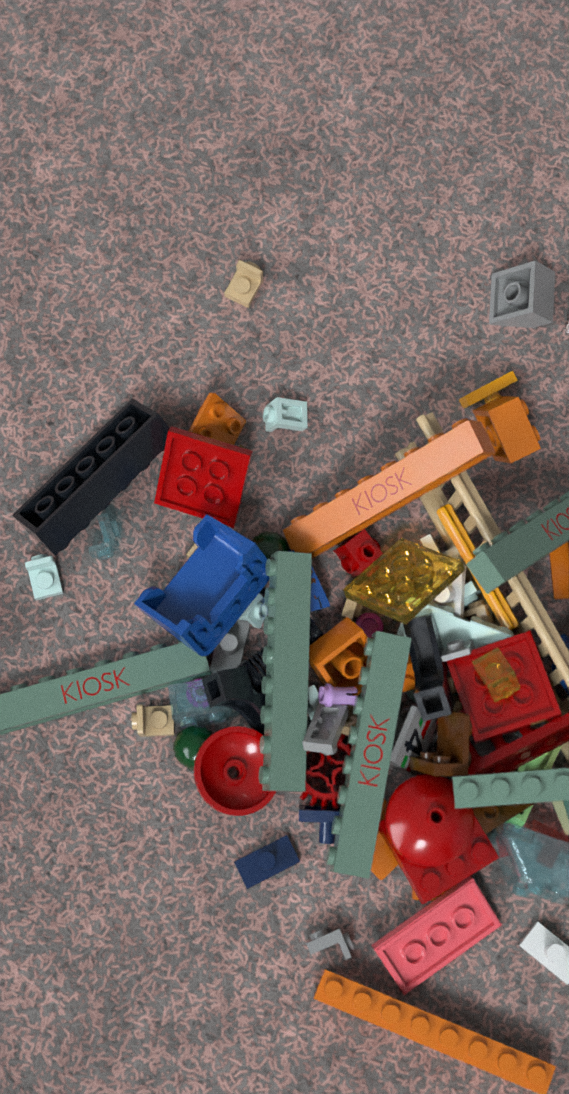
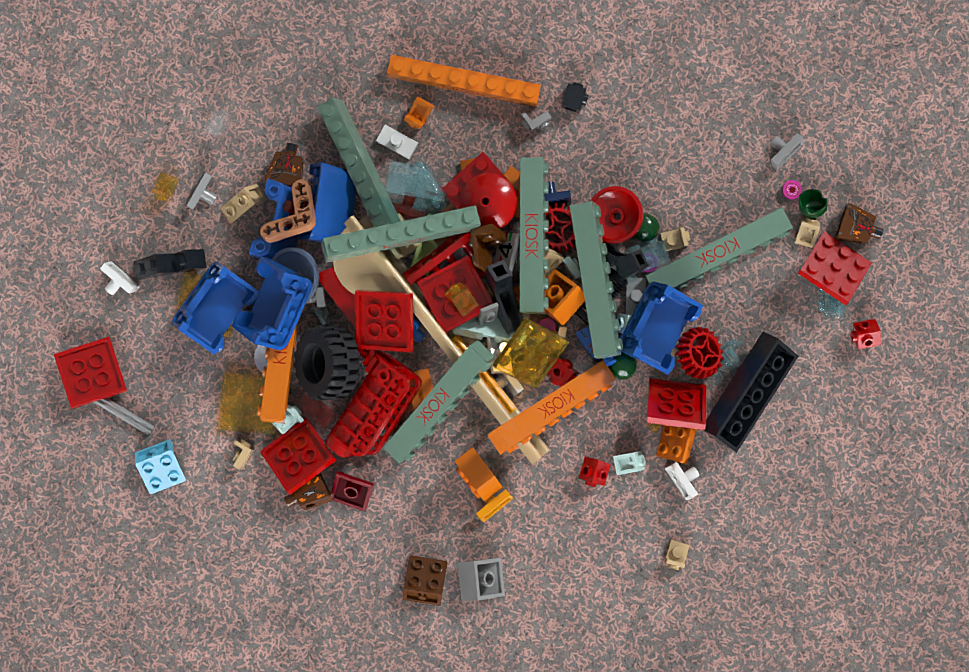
camera: 170 degrees right, 10 degrees up
(44, 576) = (768, 320): light aqua bracket -> none
(162, 529) = (703, 349): none -> red gear
(214, 378) = (683, 479): none -> white tile
(262, 970) = (574, 97): none -> black brick
(267, 862) = (584, 164): dark blue tile -> none
(325, 729) = (563, 248): light grey tile -> none
(332, 695) = (564, 270): lavender pin -> none
(338, 409) = (594, 472): none -> red brick
(436, 935) = (470, 138): coral tile -> none
(512, 991) = (418, 113): none -> orange bracket

